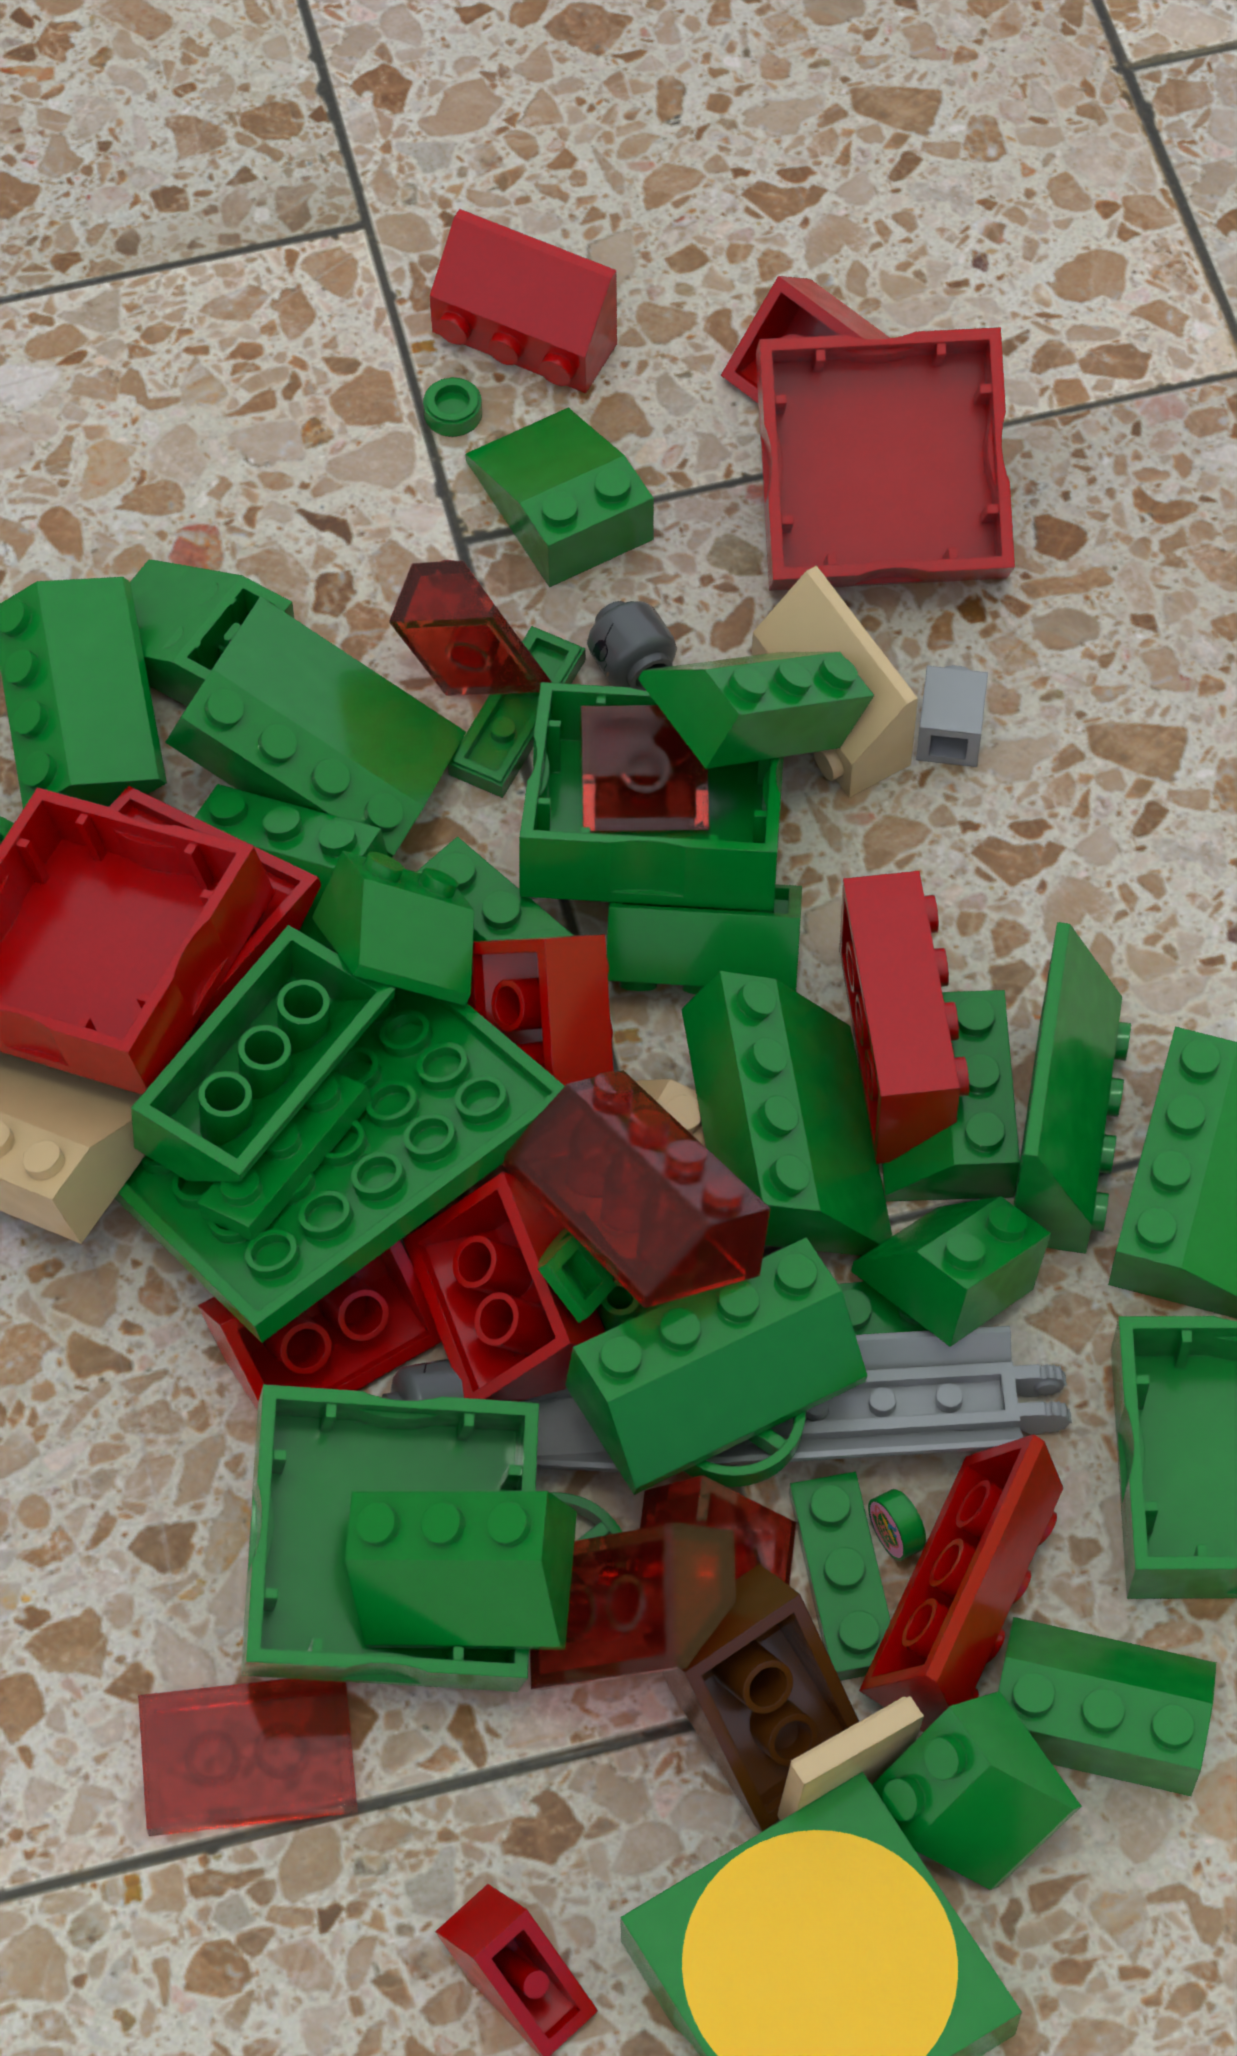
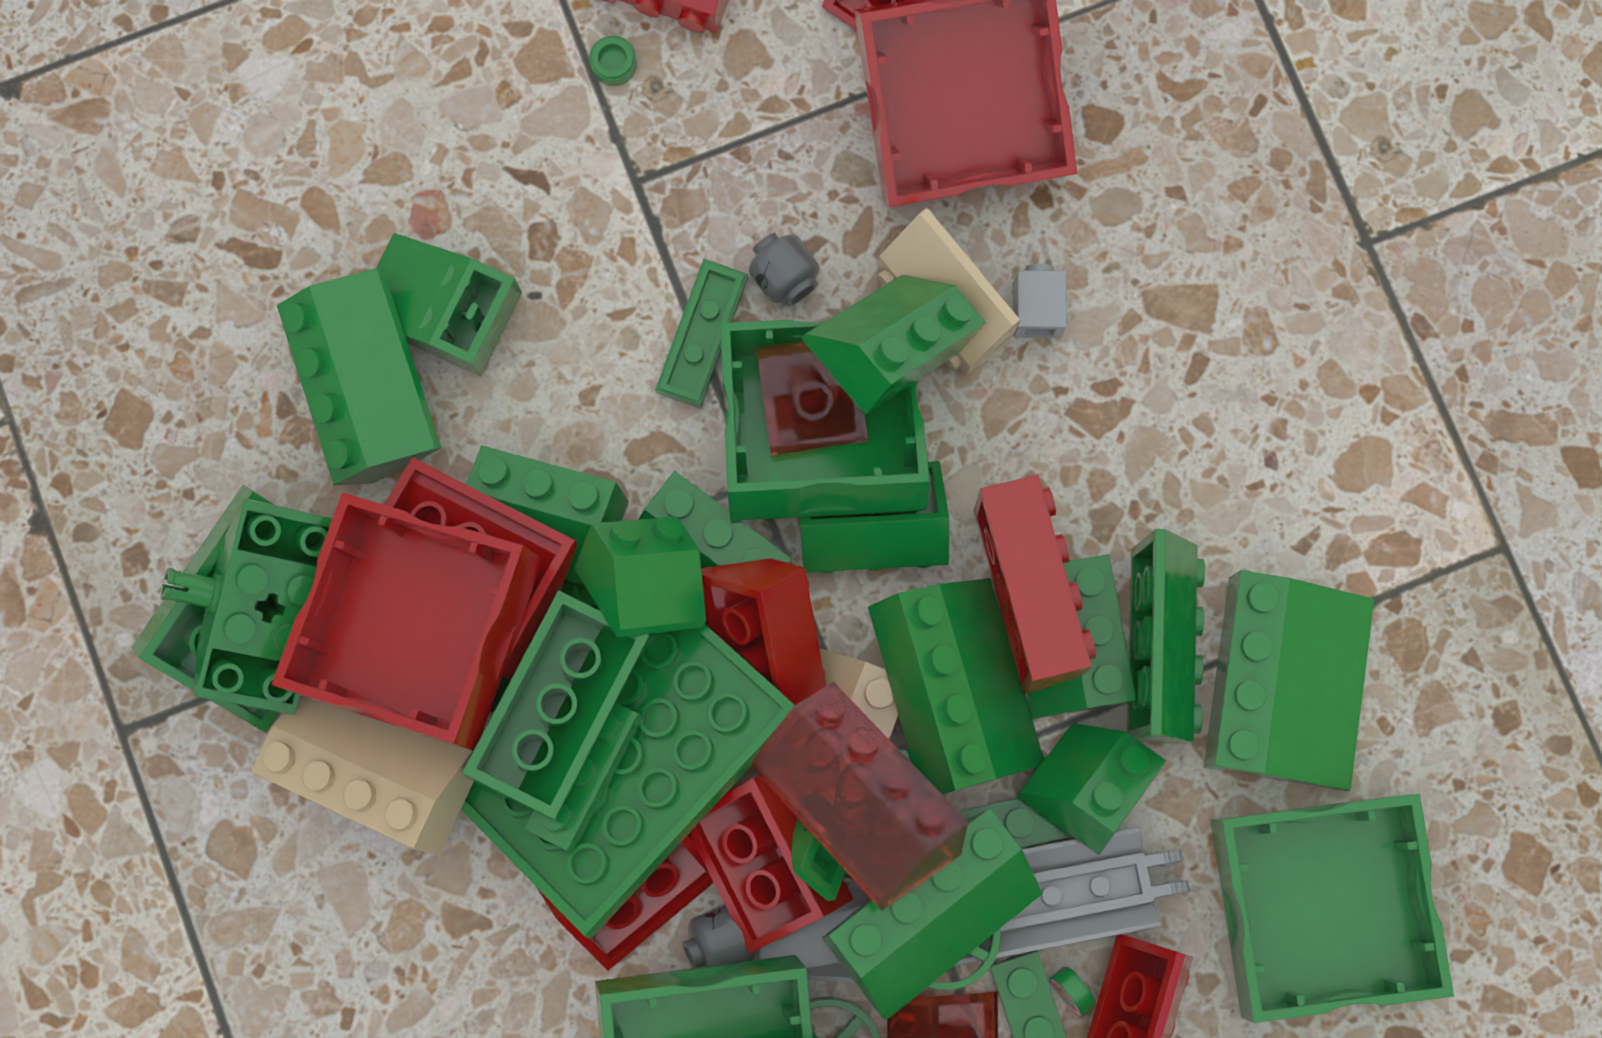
camera: 10 degrees left, 20 degrees up
(315, 728) = (553, 388): green slope -> none
(462, 633) = (654, 284): clear red slope -> none
(565, 494) = (711, 132): green slope -> none

